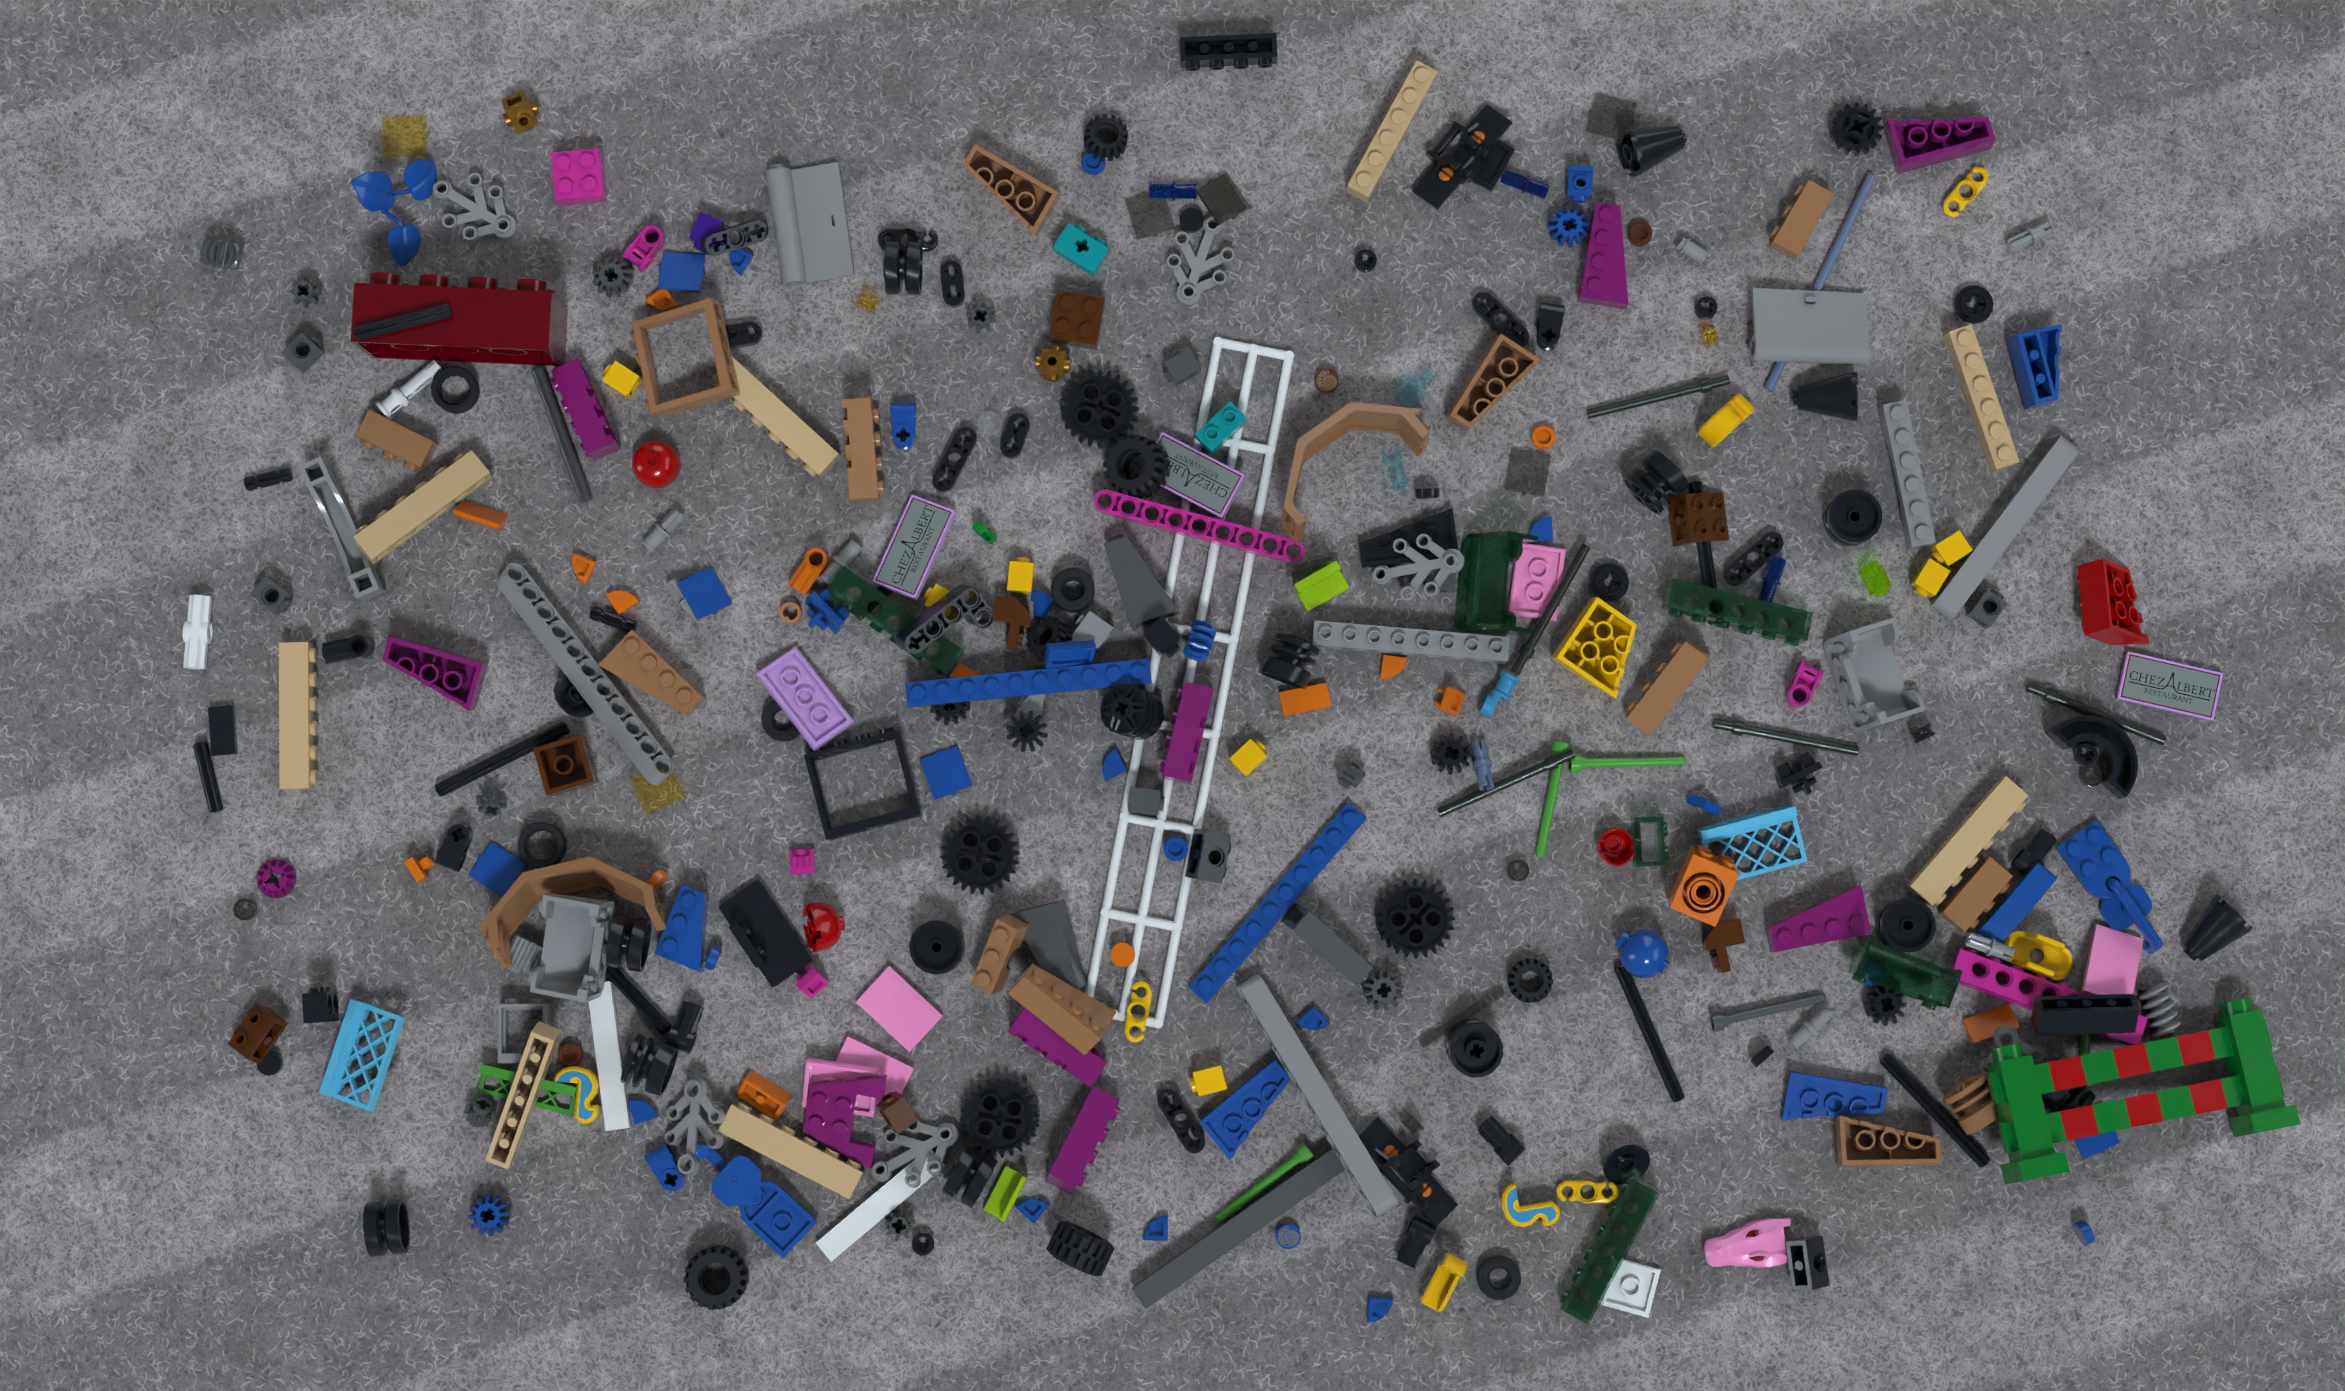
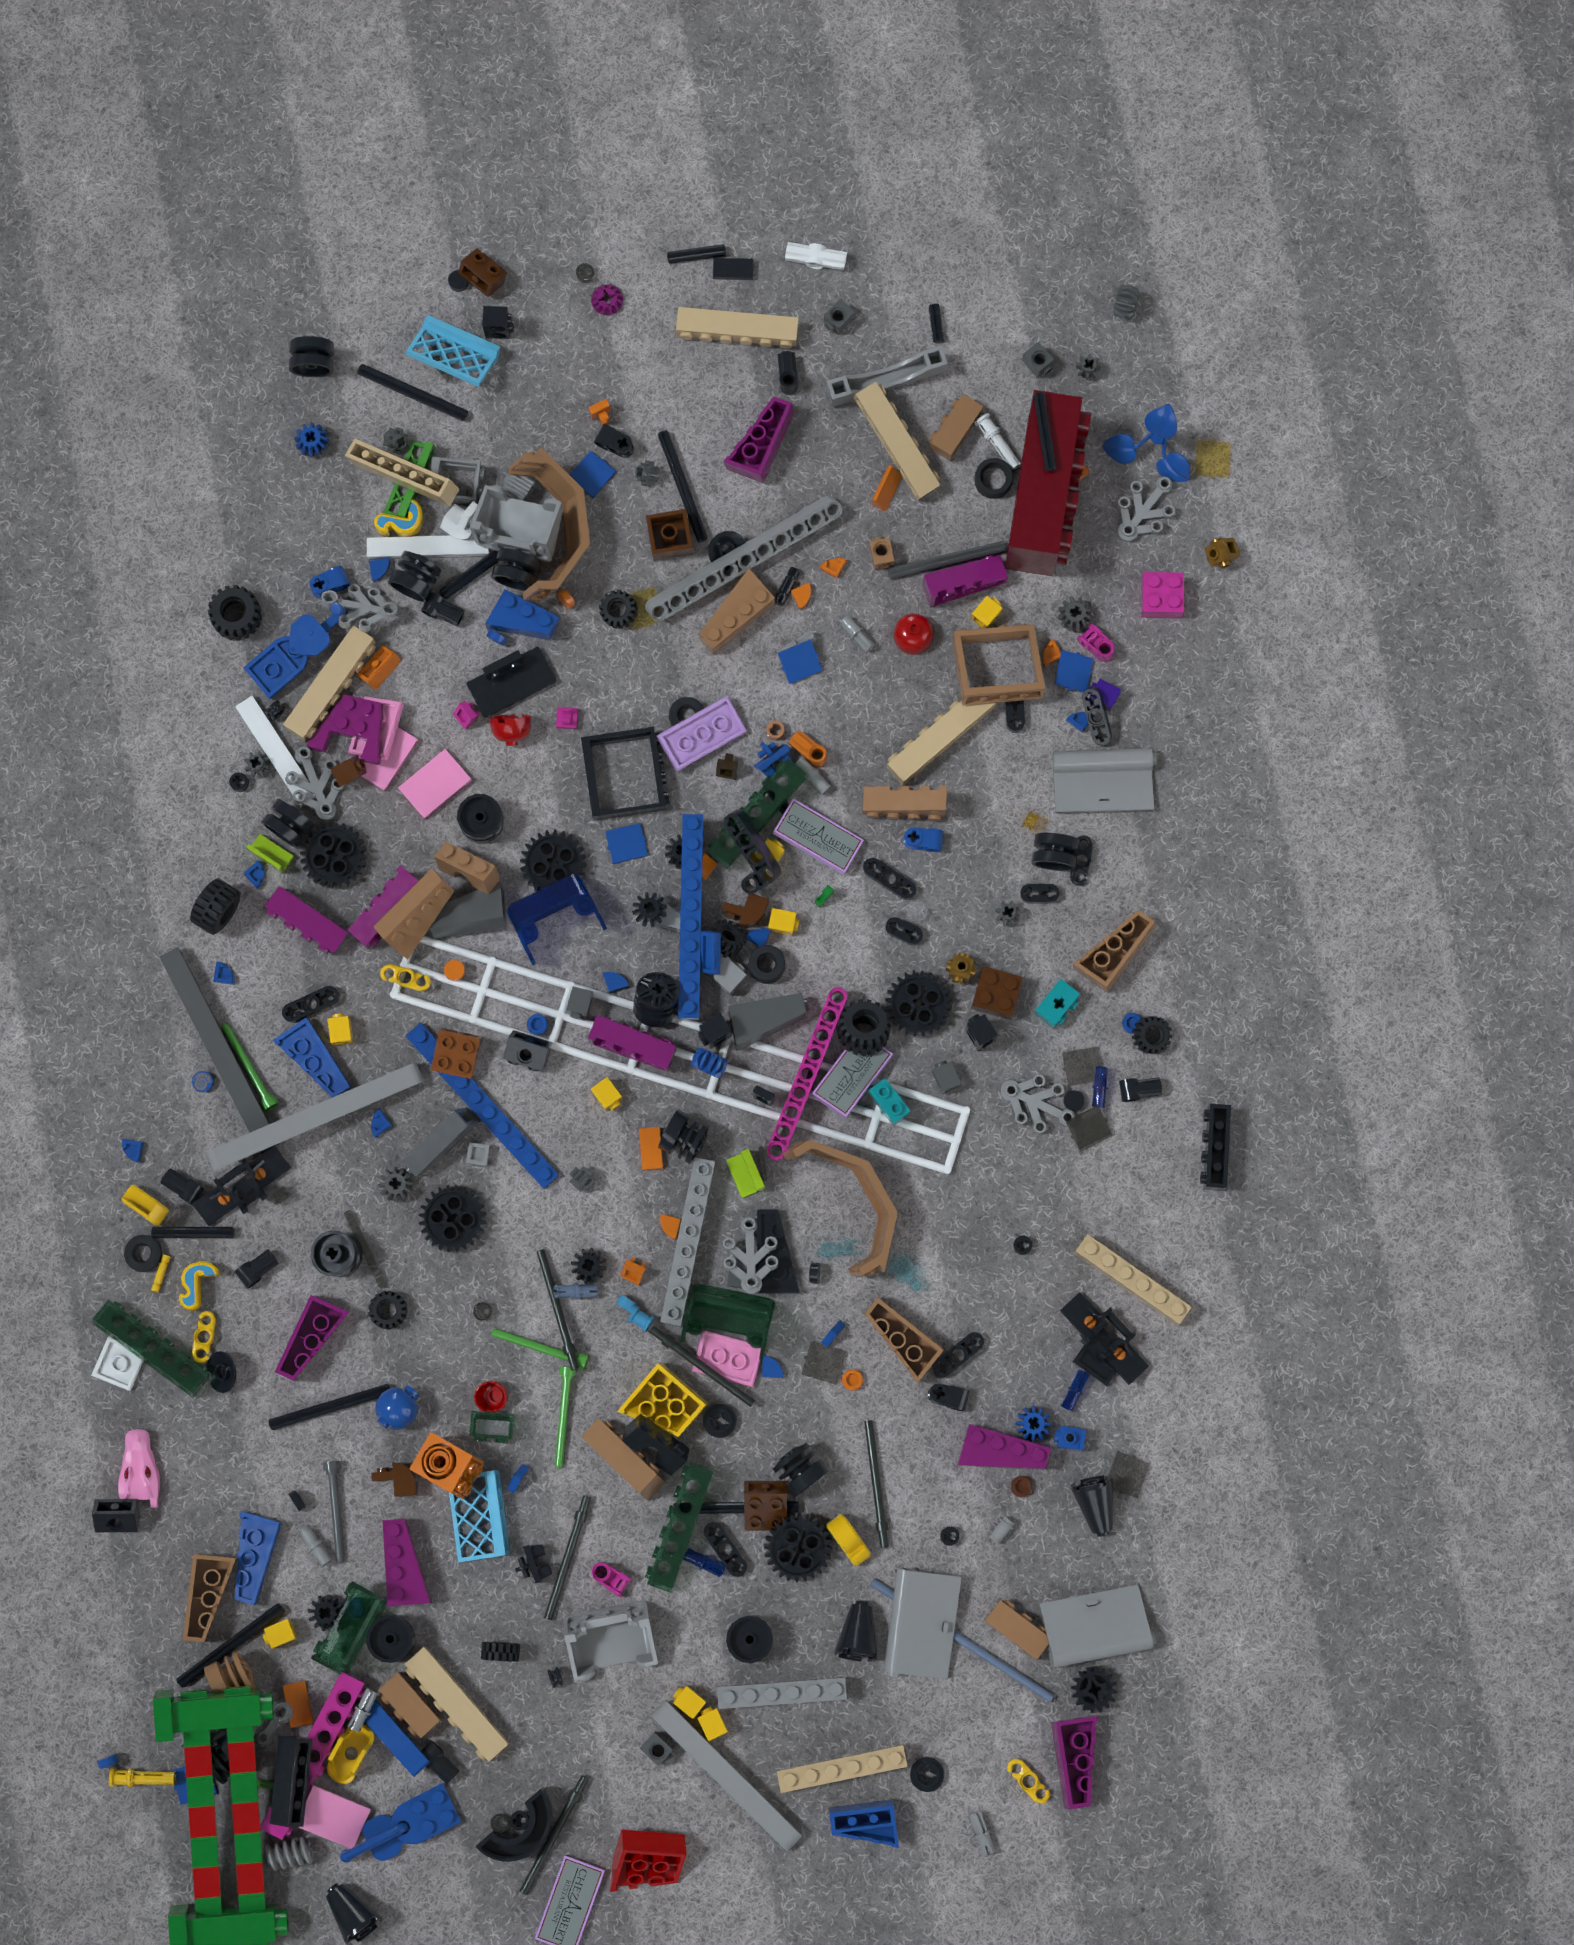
camera: 95 degrees right, 5 degrees down
(417, 1100) = (412, 392): none -> black axle
(525, 837) = (607, 495): black tyre -> none
(570, 1054) = (433, 516): copper tile -> none
(572, 512) = (884, 561): none -> medium nougat brick
(576, 1019) = (458, 521): none -> white brick
(669, 802) = (613, 598): none -> black tyre
(831, 1212) = (275, 710): none -> black bush
(842, 663) = (727, 767): none -> dark brown tile
(1031, 852) = (547, 901): none -> clear blue windscreen
(1126, 332) = (980, 1031): none -> black brick
(1170, 150) = (1134, 1089): none -> black piece
(1220, 939) = (455, 1053): none -> dark orange bracket
(1231, 572) = (763, 1095): none -> black tile
(1326, 381) = (922, 1199): copper tile -> none
(1336, 899) = (478, 1154): none -> light grey plate
(1467, 1221) = (192, 1232): none -> black axle
(1494, 464) = (839, 1326): none -> blue tile
(1519, 1253) = (160, 1273): none -> yellow wheel
(1568, 1065) = (311, 1332): none -> magenta wedge
(1639, 662) = (645, 1433): none -> black arch
(1709, 335) = (923, 1535): clear yellow bush -> none
(1739, 496) = (816, 1552): none -> black gear
(1795, 137) = (1096, 1632): none -> light grey door
(1875, 579) = (694, 1653): clear neon green brick -> none
(1903, 798) = (500, 1651): none -> black tyre
(1915, 1054) = (279, 1634): none -> yellow brick
(2098, 1202) = (132, 1777): none -> yellow pin

